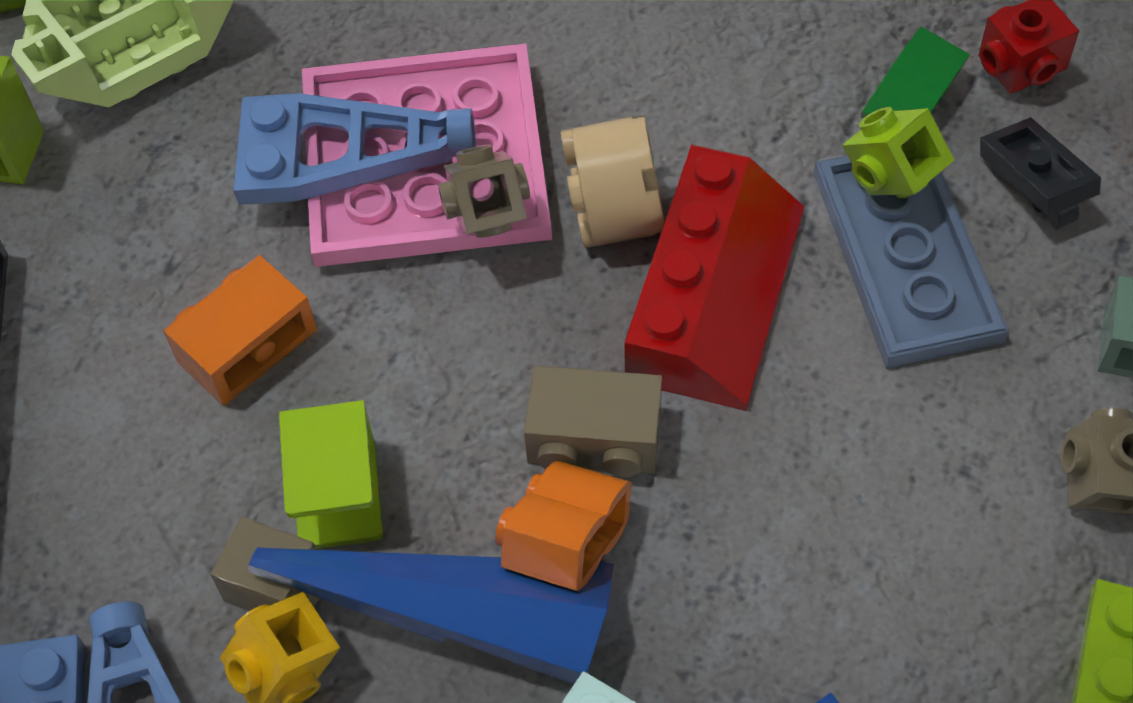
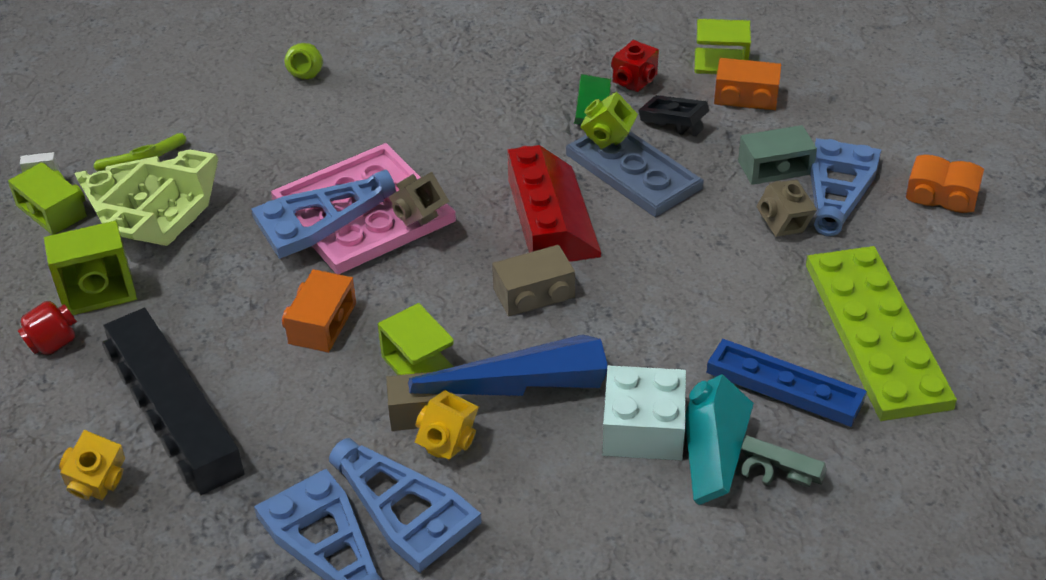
camera: 30 degrees left, 15 degrees down
(564, 524) = (551, 320): orange brick -> none
(613, 181) = (477, 178): tan brick -> none

